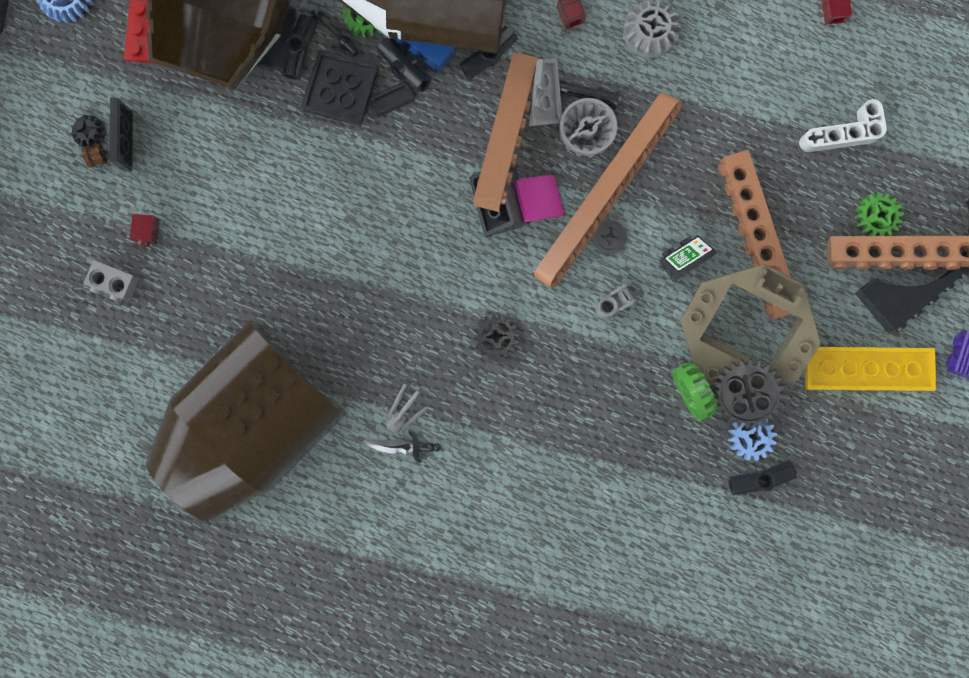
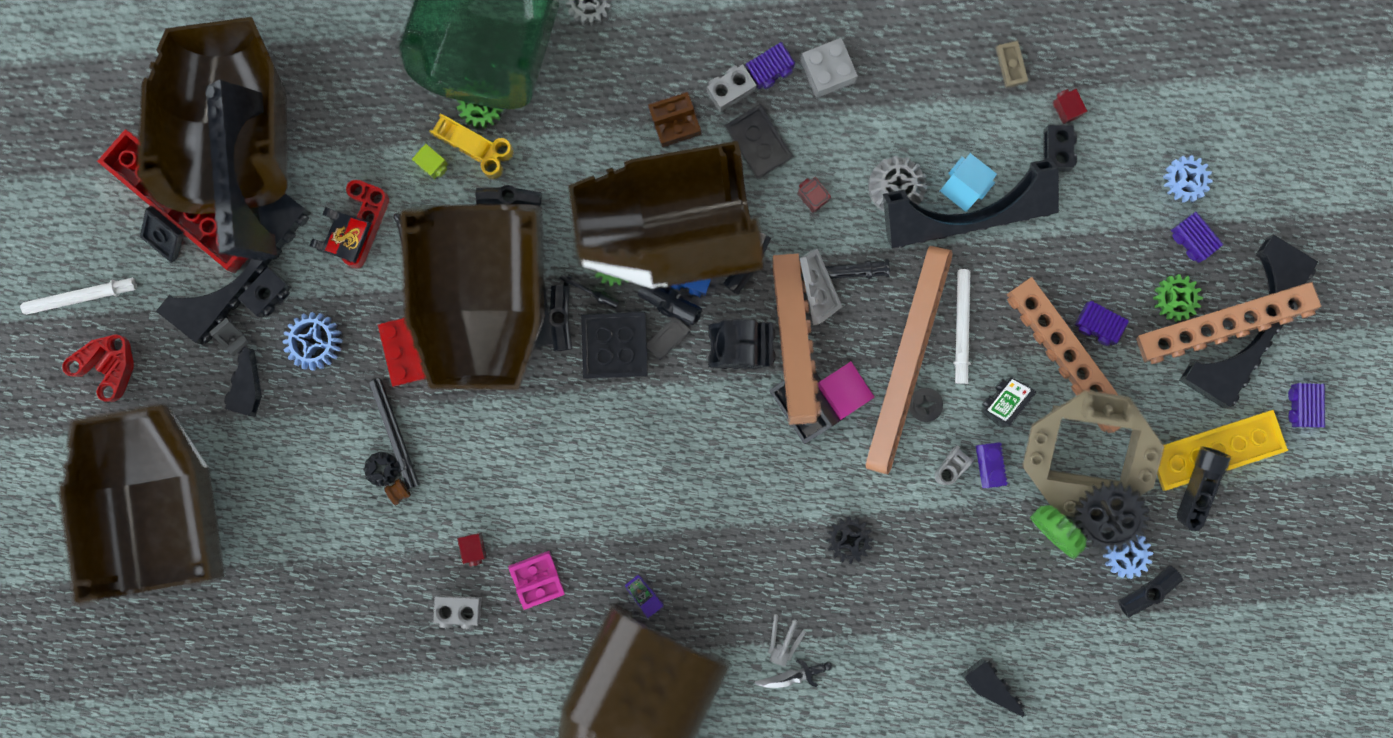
camera: 15 degrees left, 0 degrees up
(110, 91) = (394, 433): none -> black axle
(121, 135) = (419, 464): black tile -> none
(194, 279) = (536, 580): none -> dark pink slope
(288, 326) = (644, 596): none -> leg
(455, 121) = (741, 344): none -> black piece
(579, 513) = (986, 684): none -> black slope
(596, 115) = (881, 290): light grey gear -> none
(652, 311) = (991, 465): none -> dark purple brick
(668, 177) = (962, 327): none -> white axle
(719, 45) = (968, 182): none -> medium azure plate
(772, 78) = (1031, 198): none -> black arch
(799, 216) = (1101, 323): none -> dark purple brick
(810, 41) = (1053, 147): none -> black brick
(841, 132) = (1116, 229): white beam -> none
(857, 376) = (1210, 465): none -> black beam
(915, 165) = (1196, 237): none -> dark purple brick
(919, 117) = (1198, 179): none -> light blue gear

